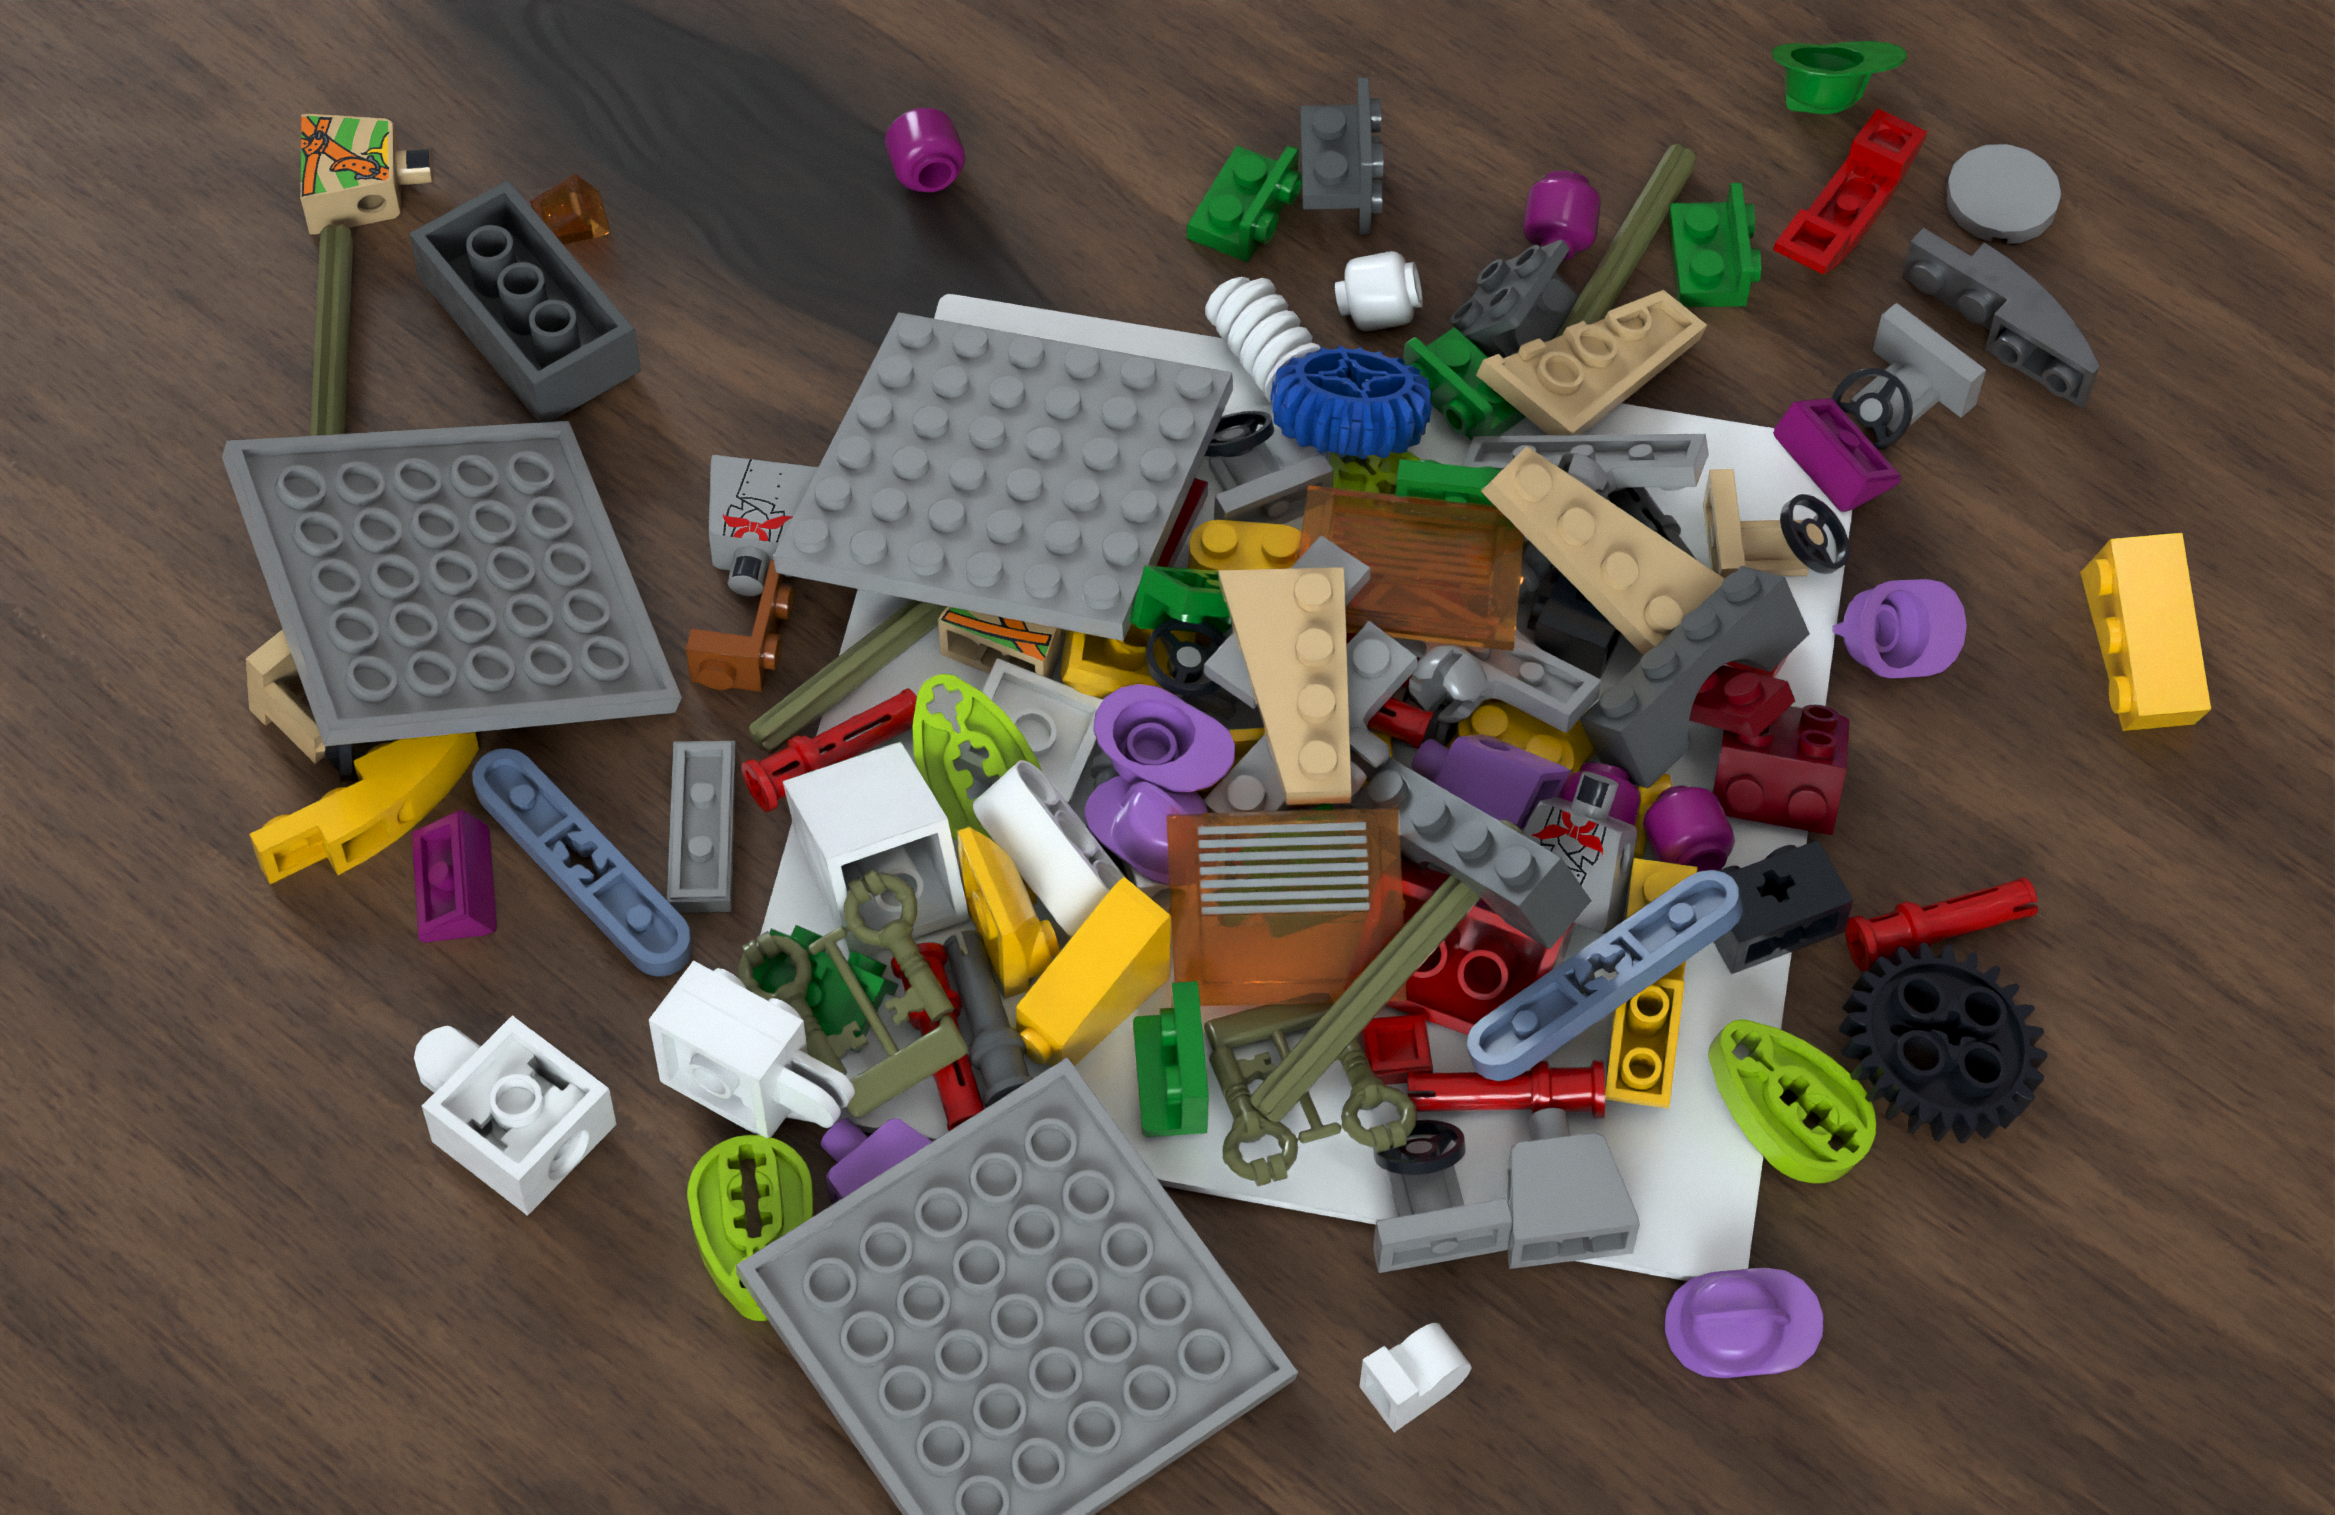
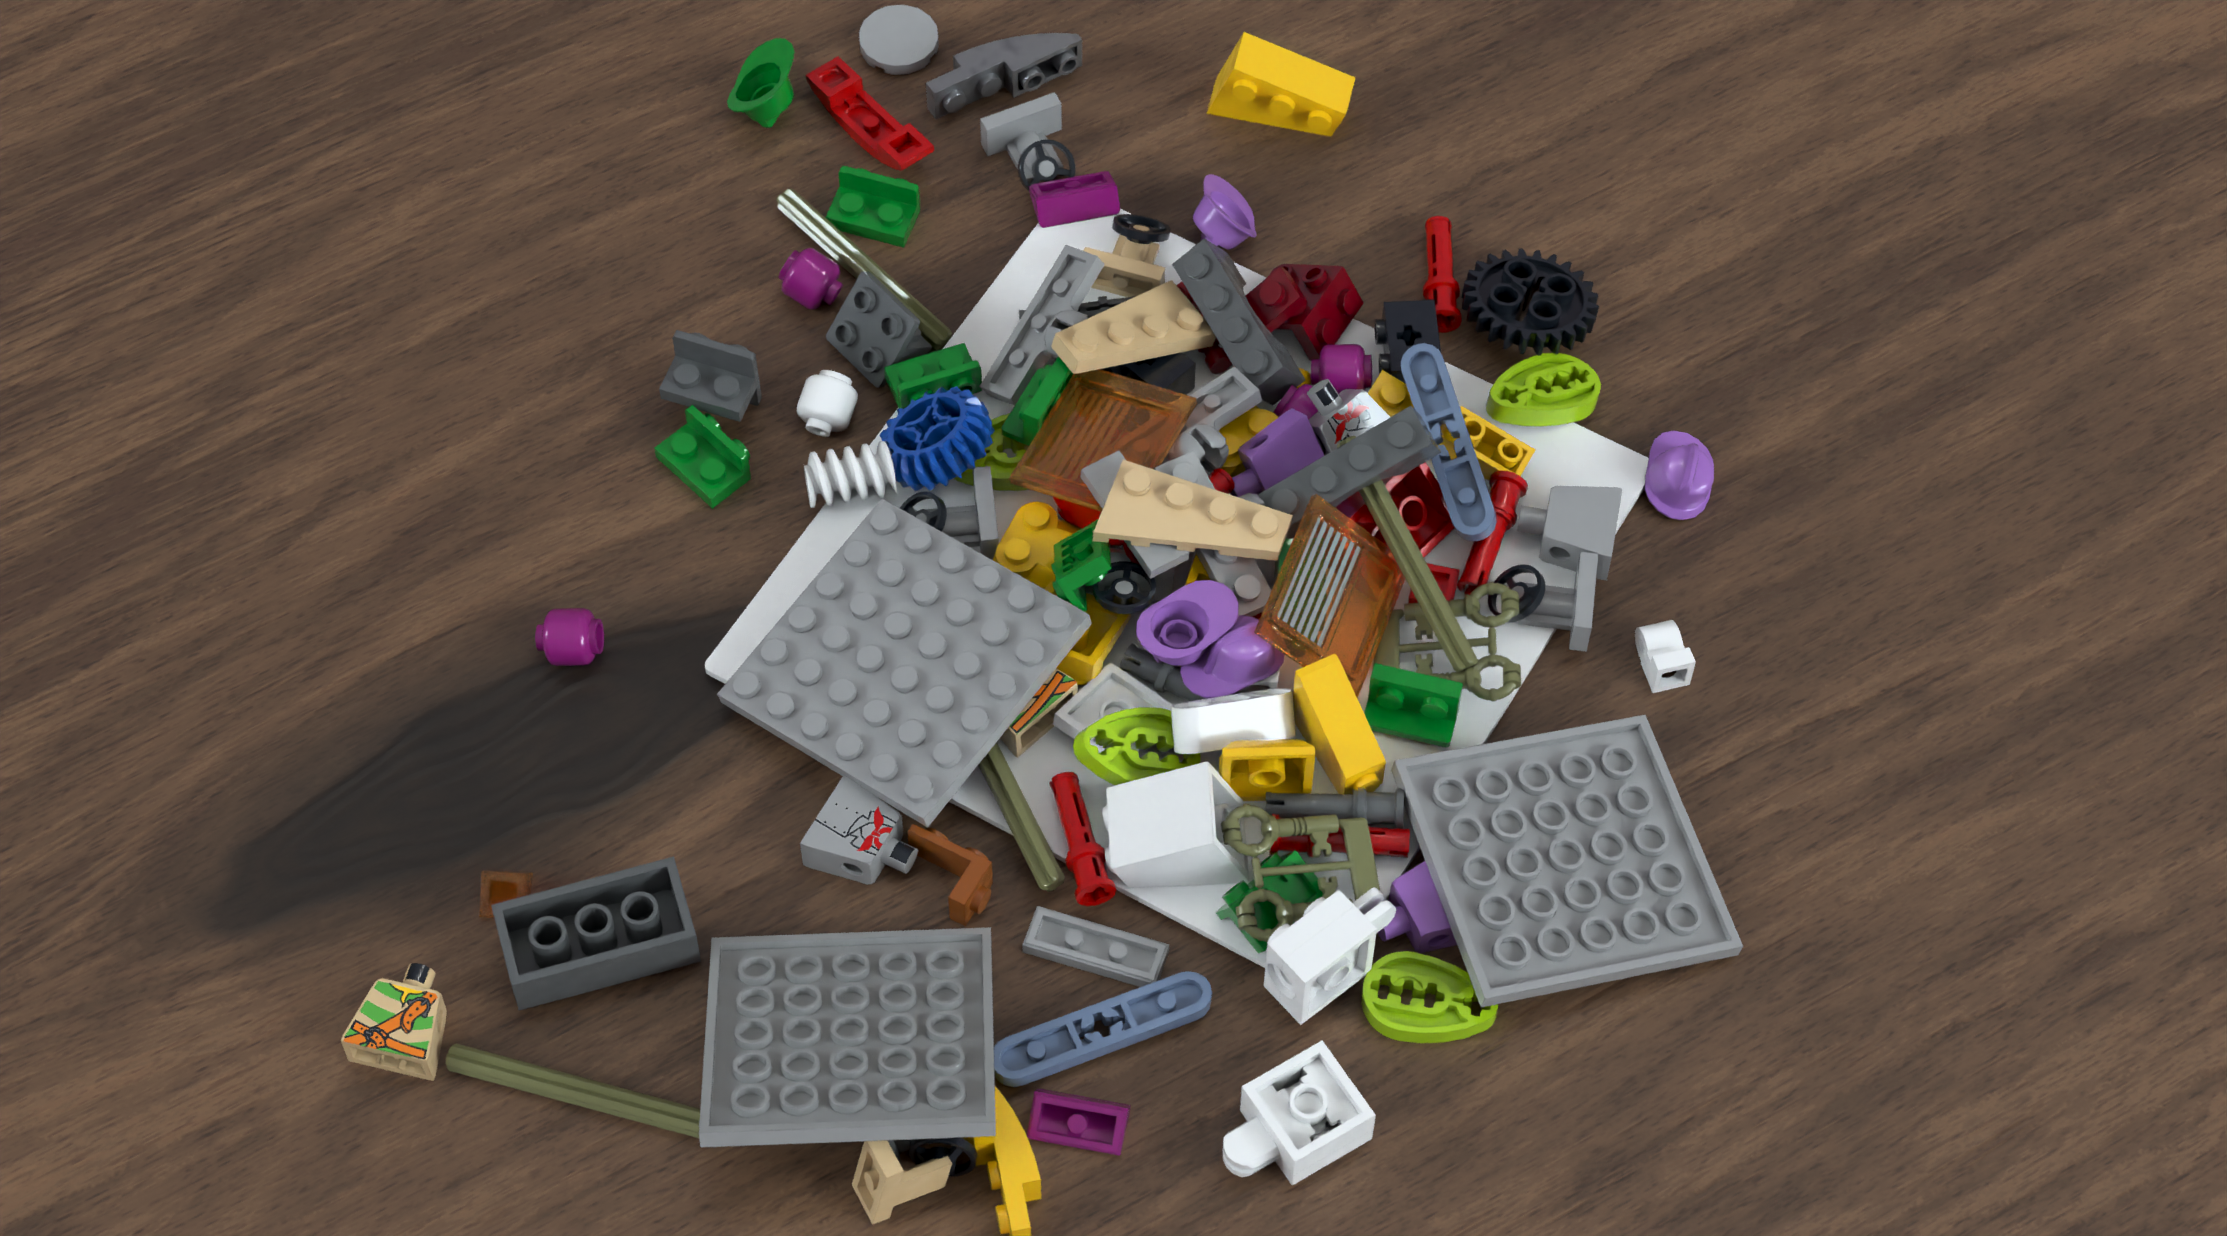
camera: 70 degrees left, 0 degrees up
(1595, 366) = (953, 300): tan wing -> none

